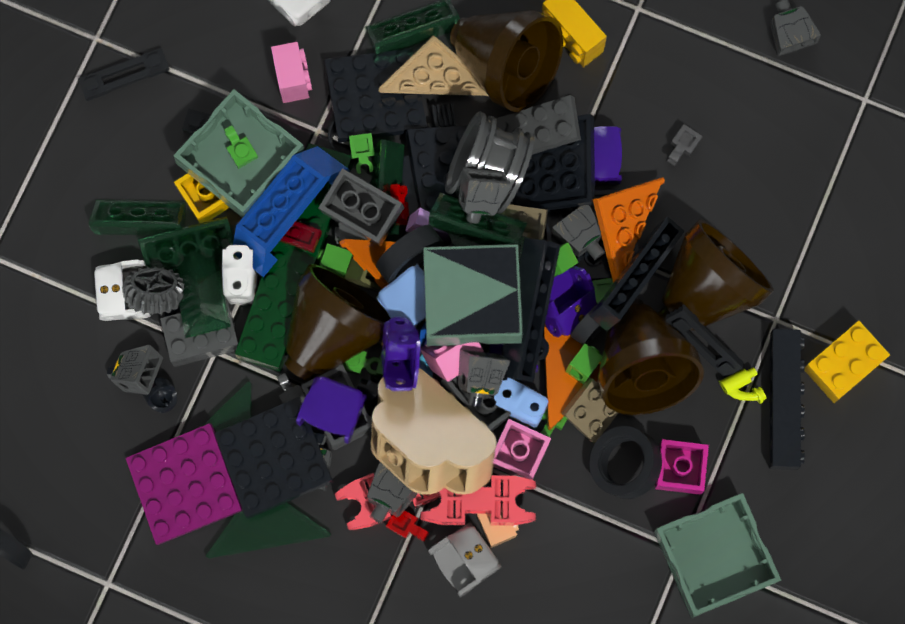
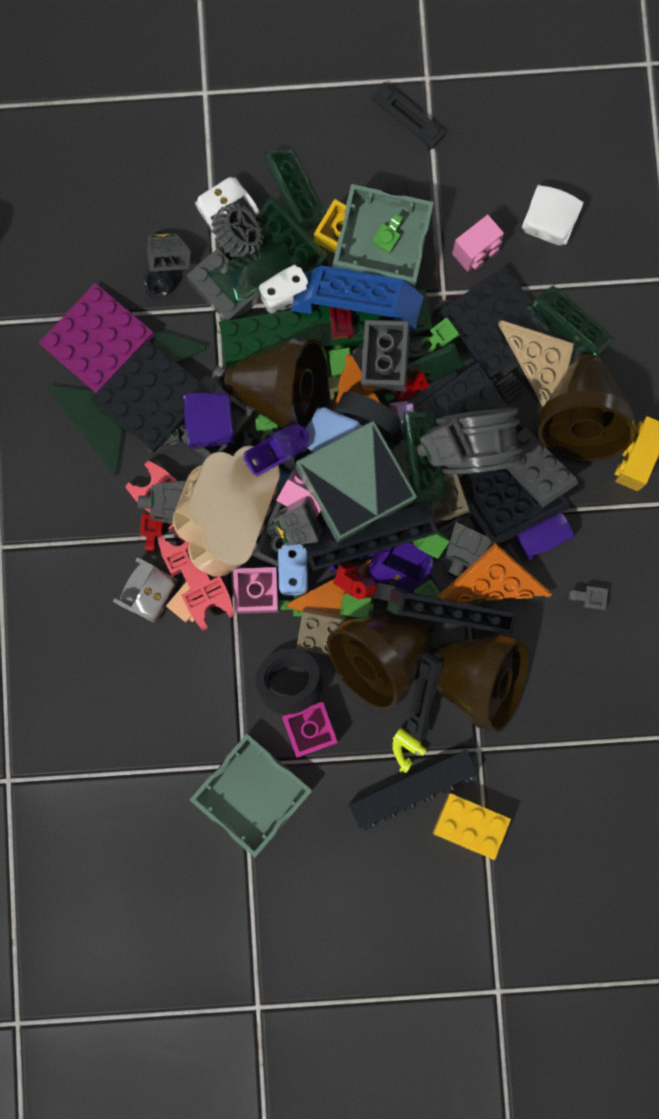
camera: 65 degrees right, 5 degrees up
(563, 351) = (353, 582): none -> red leg

